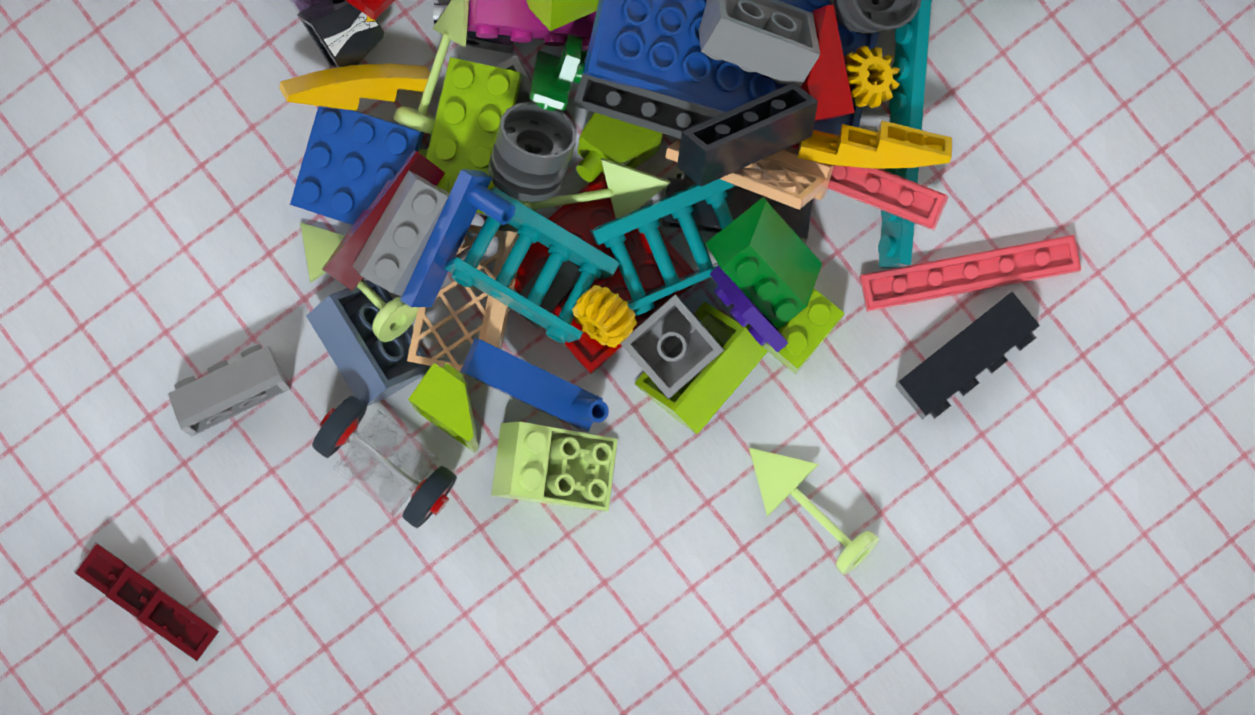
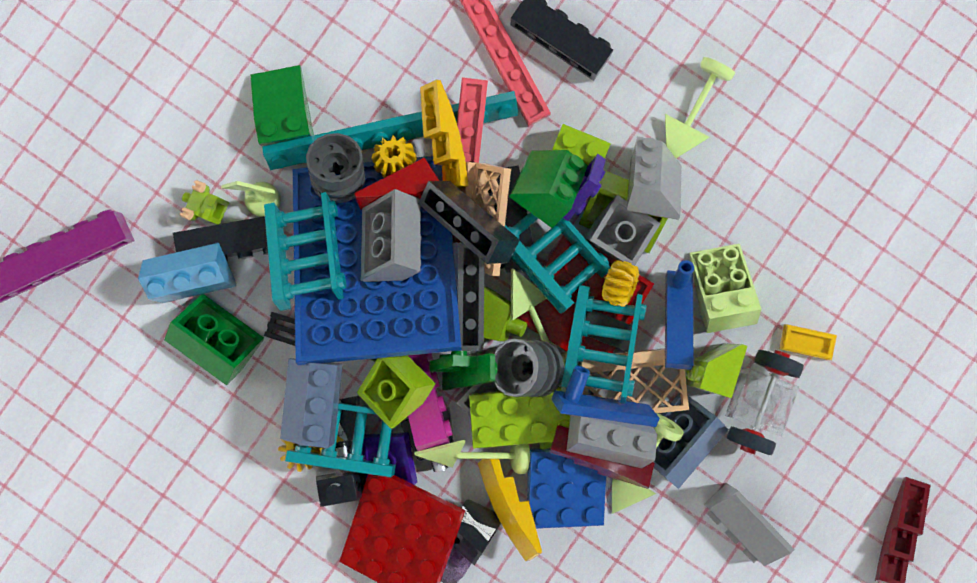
camera: 105 degrees left, 5 degrees up
(443, 559) = (808, 342): none -> yellow tile
(729, 411) = (654, 180): none -> light grey slope

